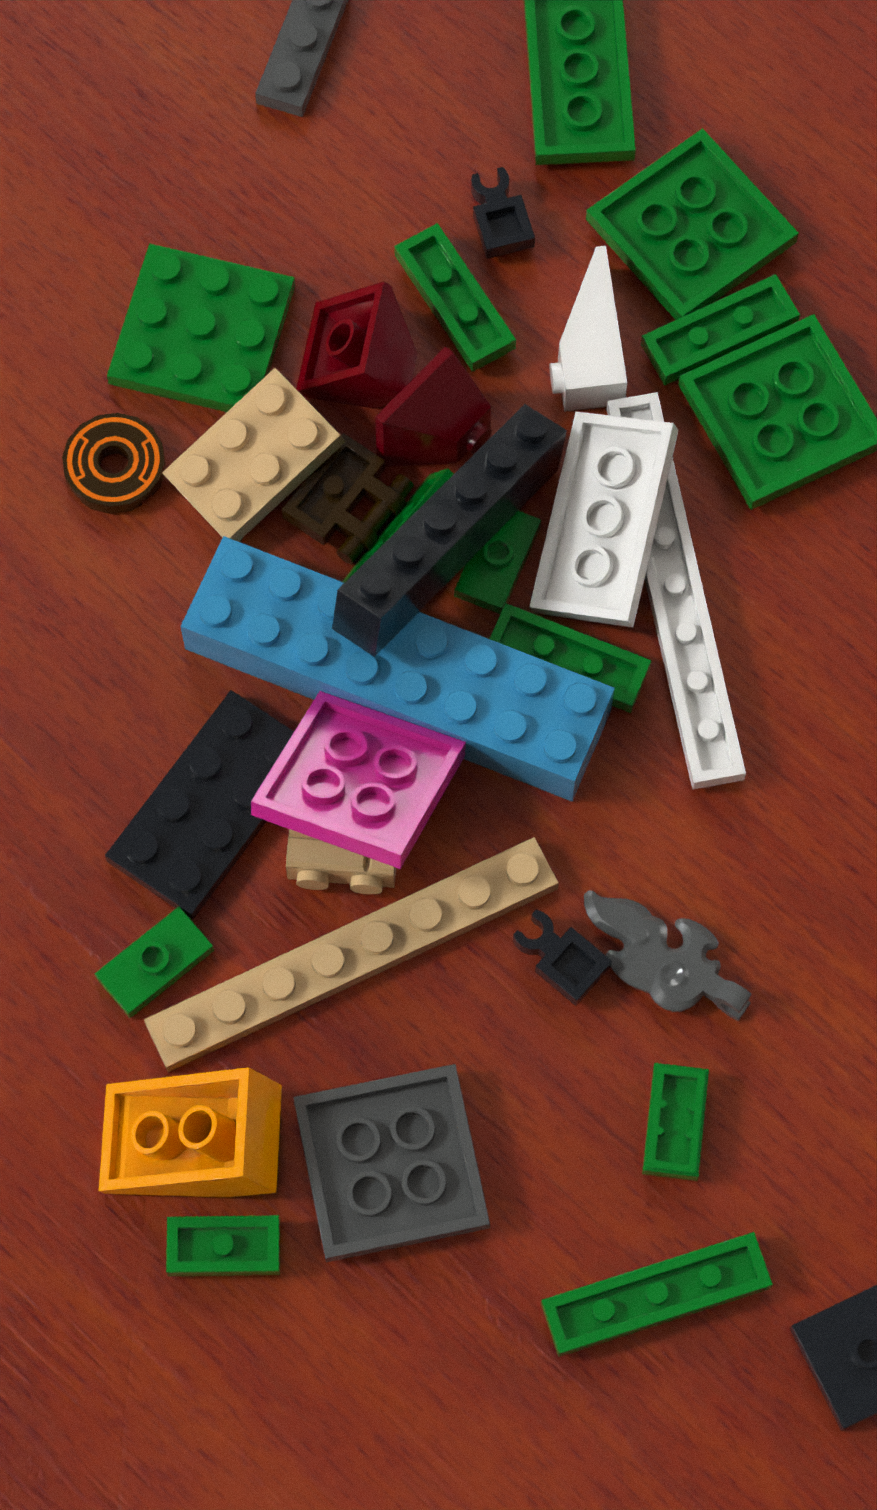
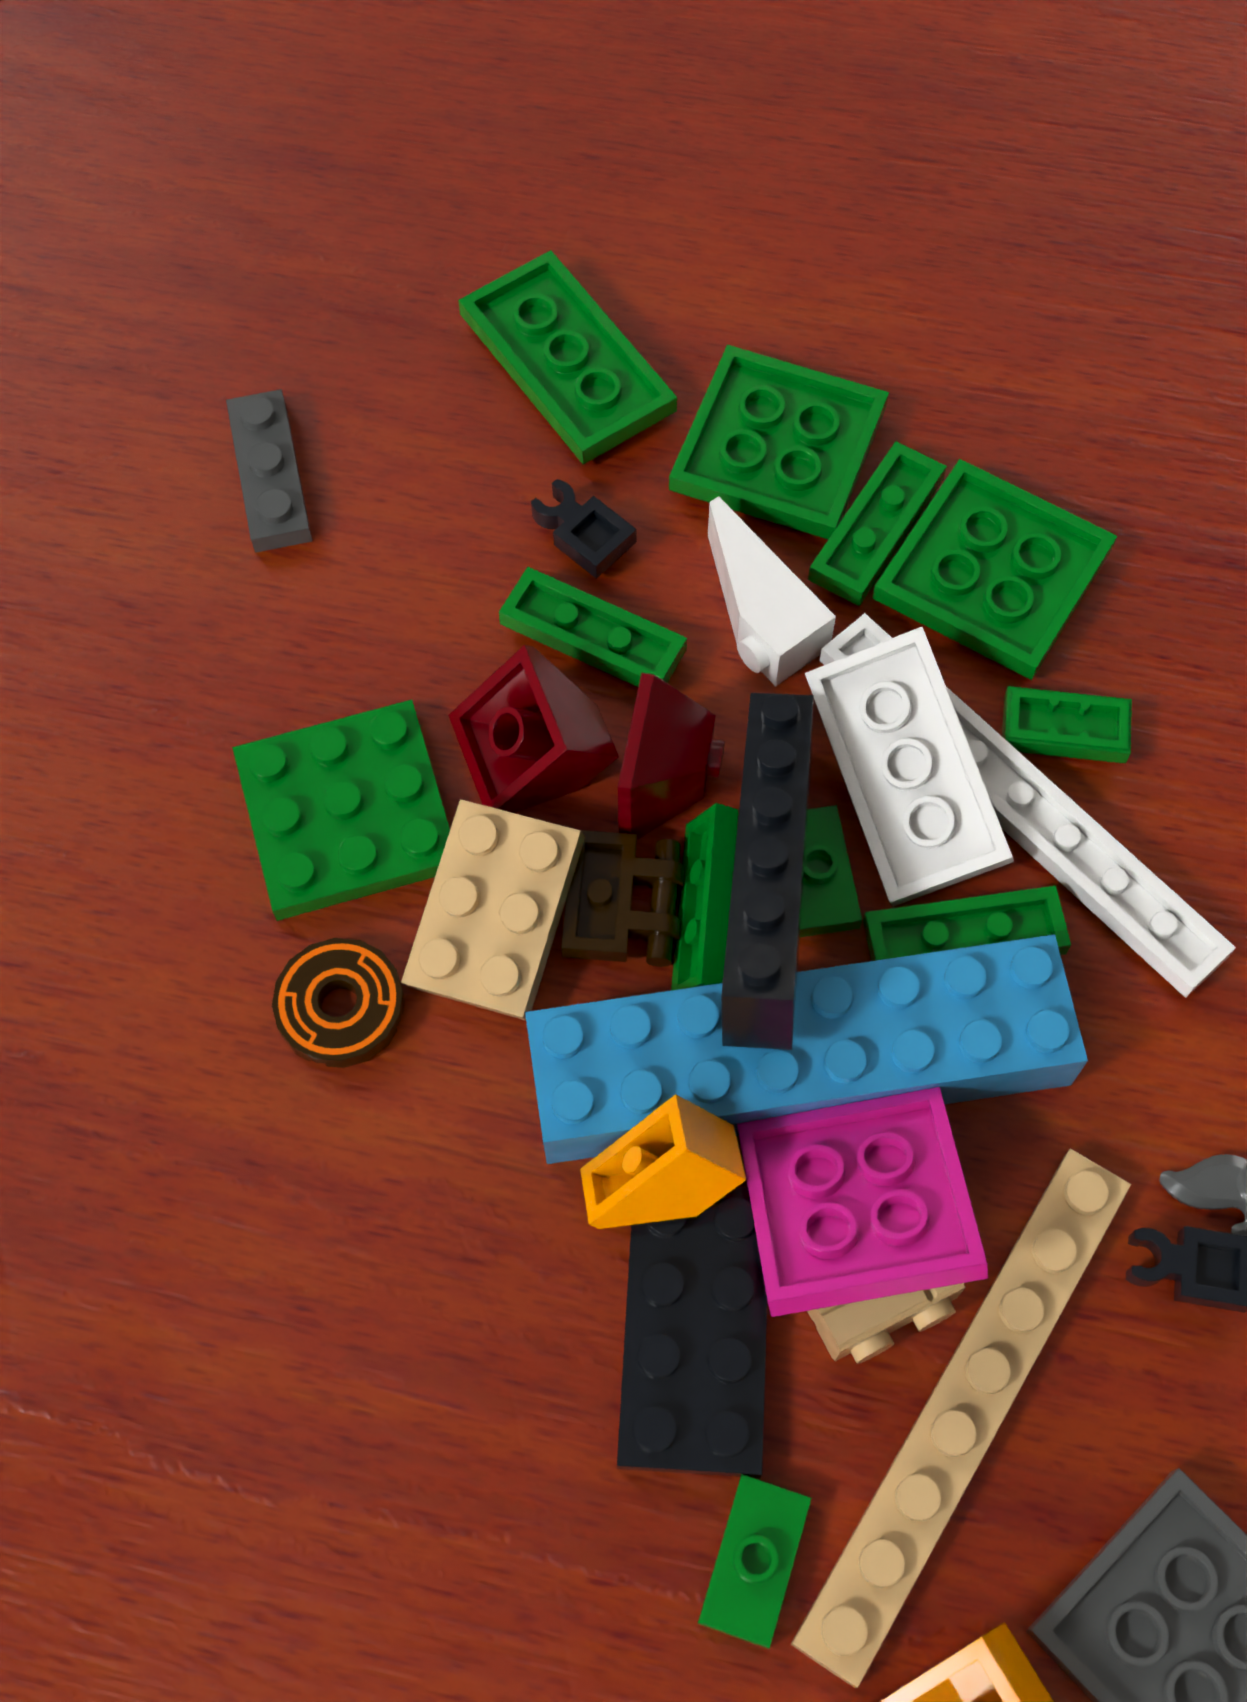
camera: 30 degrees left, 5 degrees down
(249, 688) = (663, 1168): none -> light orange slope
(748, 555) = (1067, 724): none -> green plate

